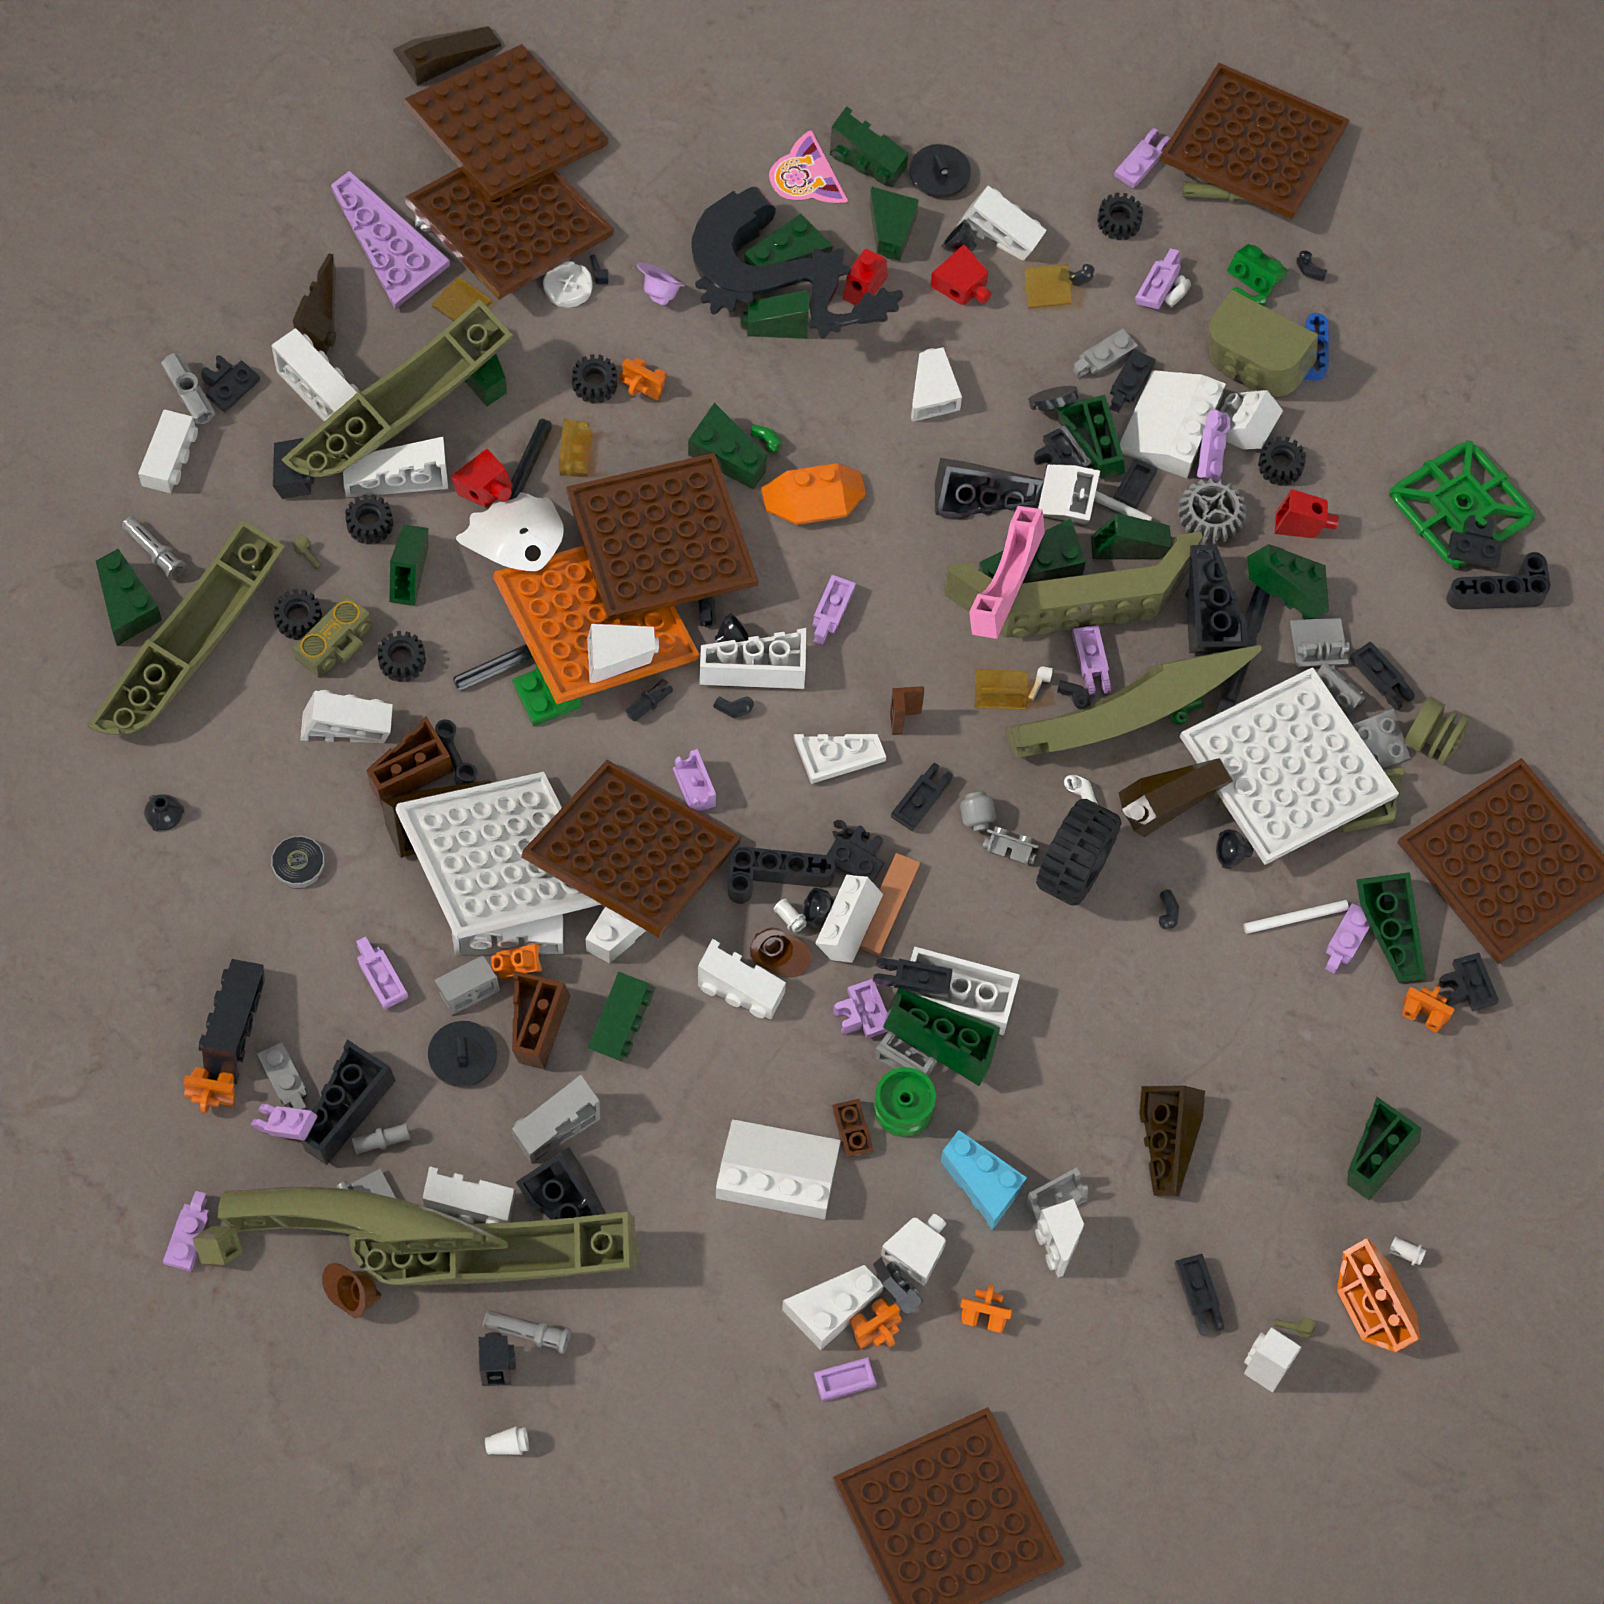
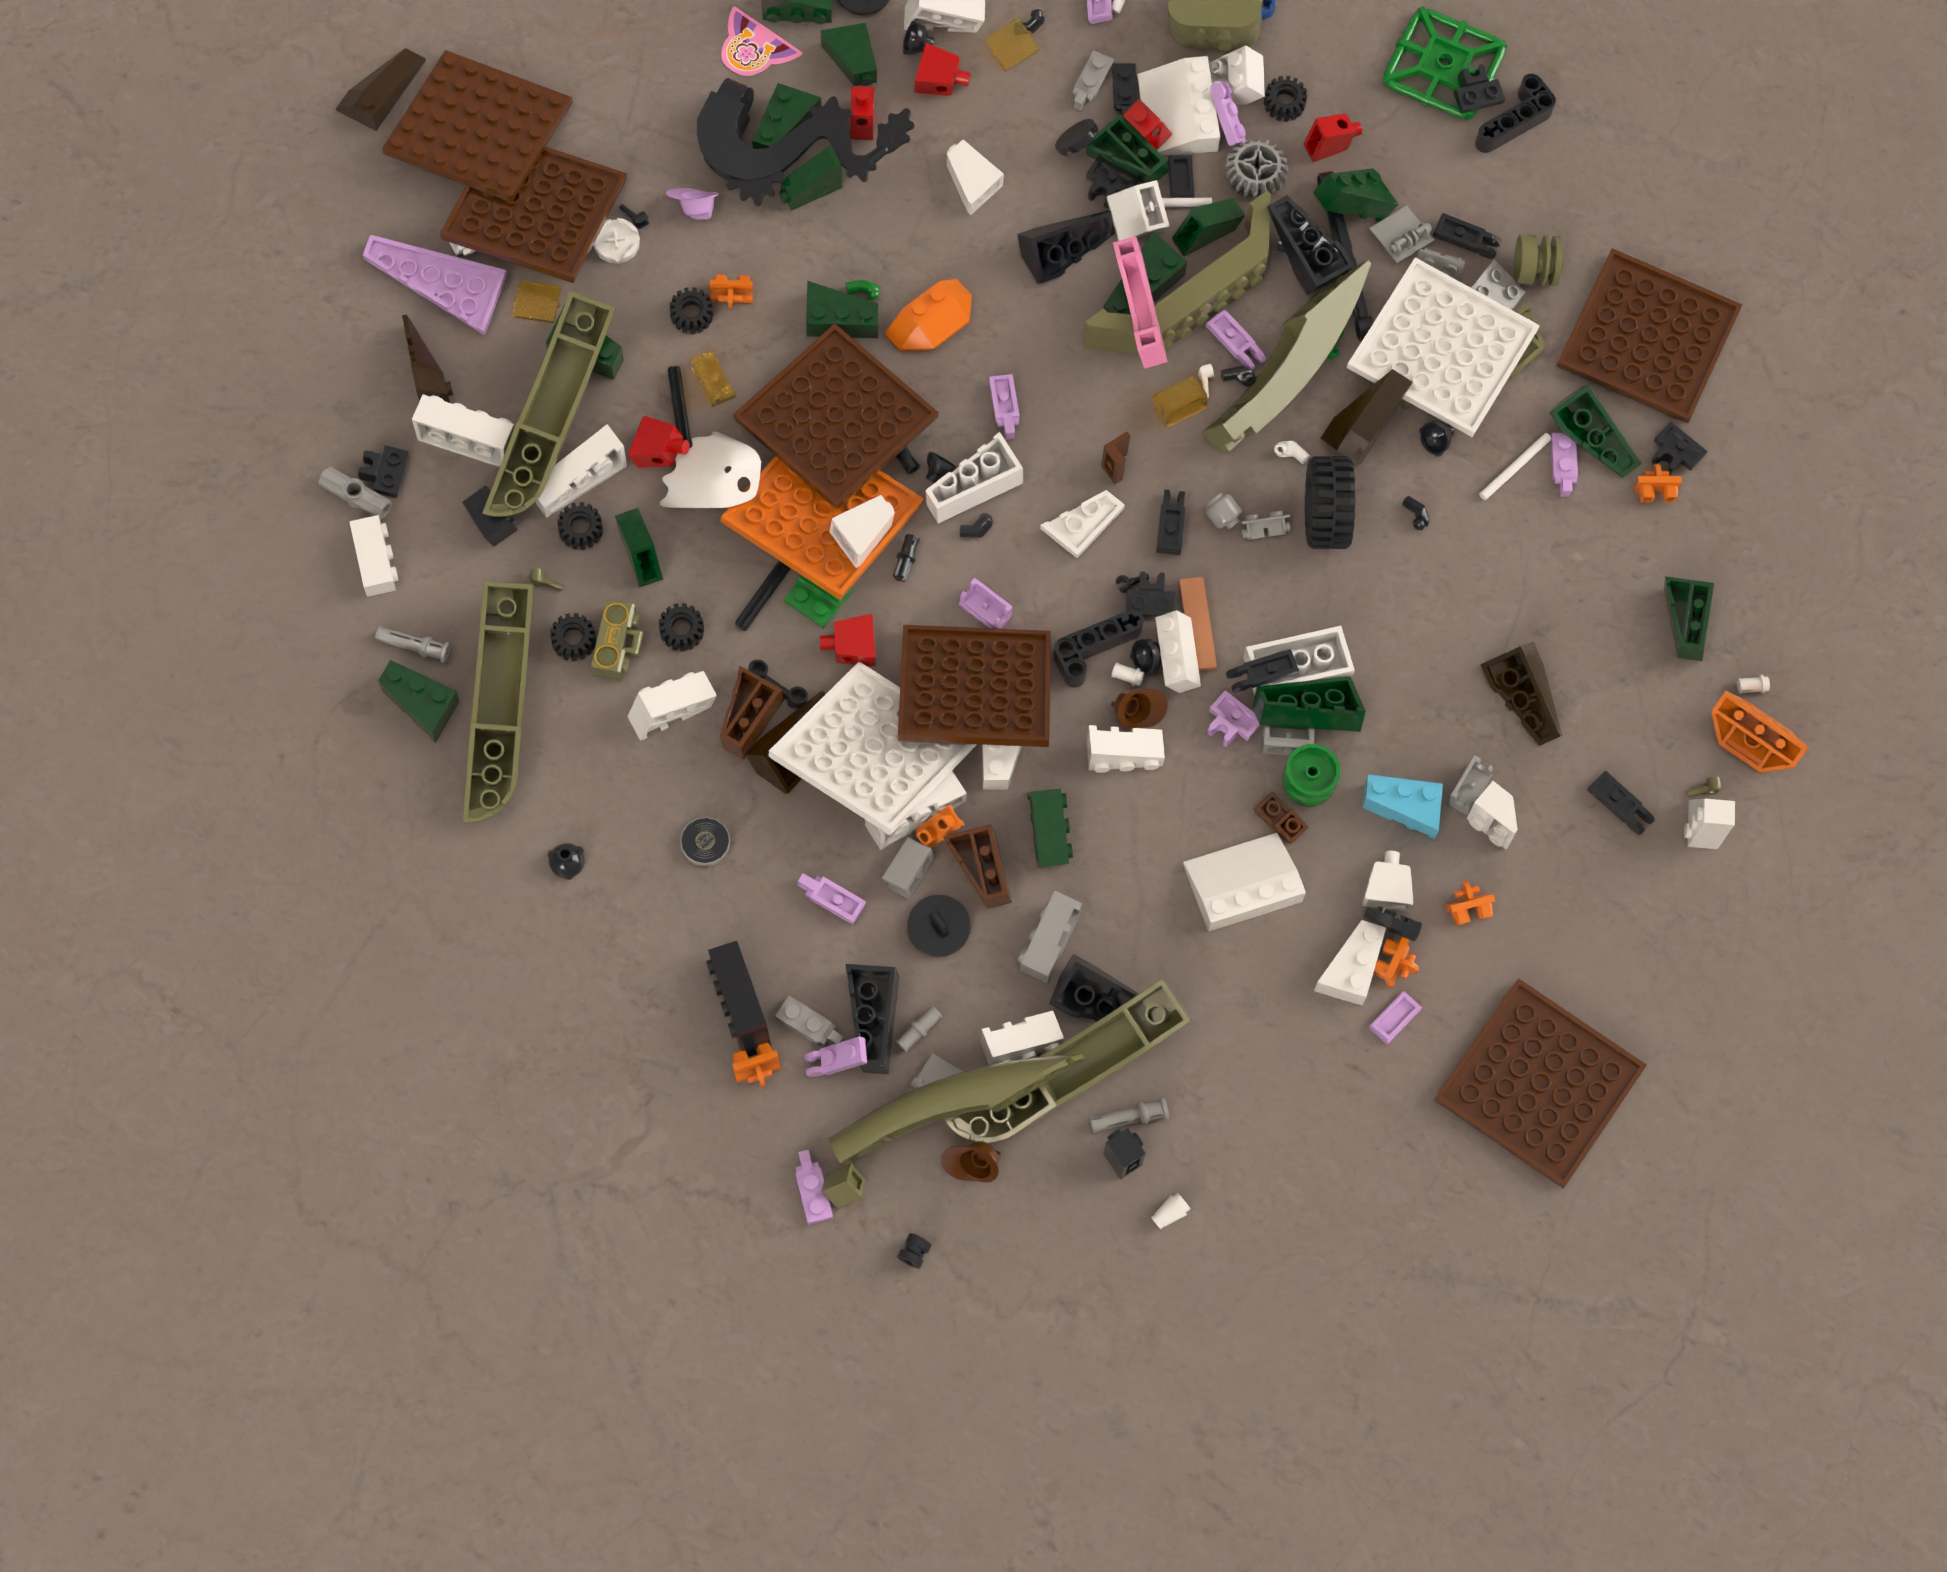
camera: 30 degrees left, 5 degrees up
(243, 1342) = (913, 1252): none -> black wheel
(550, 749) = (852, 641): none -> red torso
(1124, 411) = (1146, 123): none -> red torso

